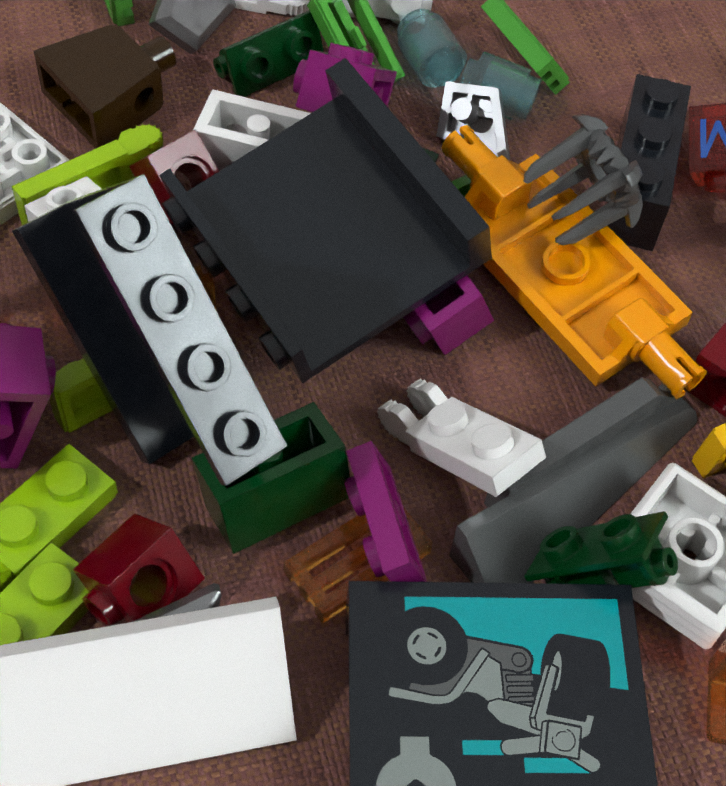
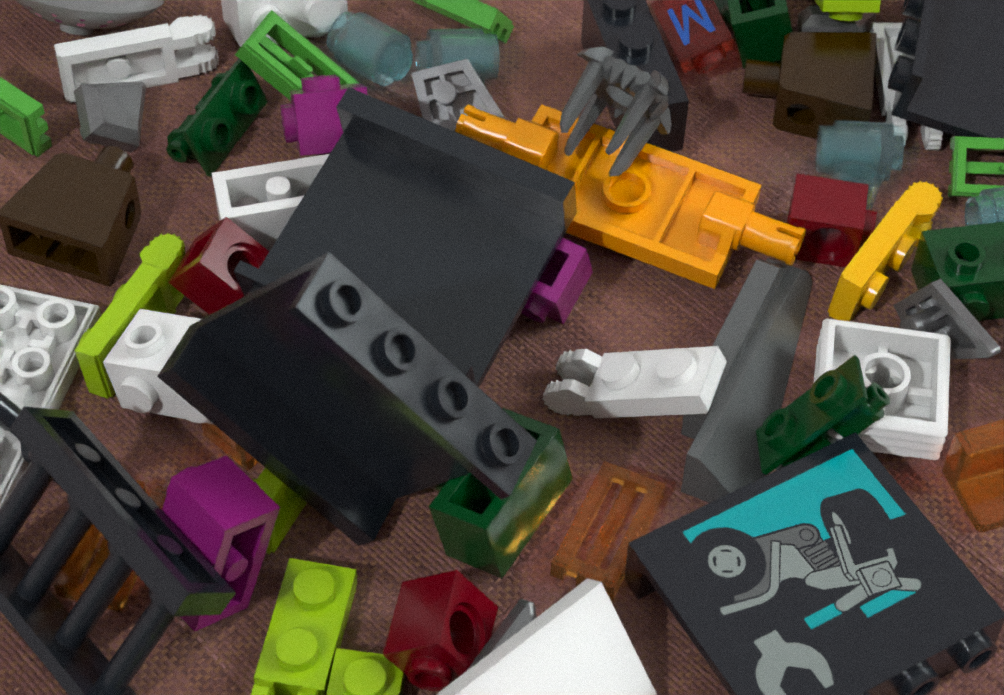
camera: 25 degrees left, 5 degrees down
(375, 494) = (599, 462): magenta plate -> none

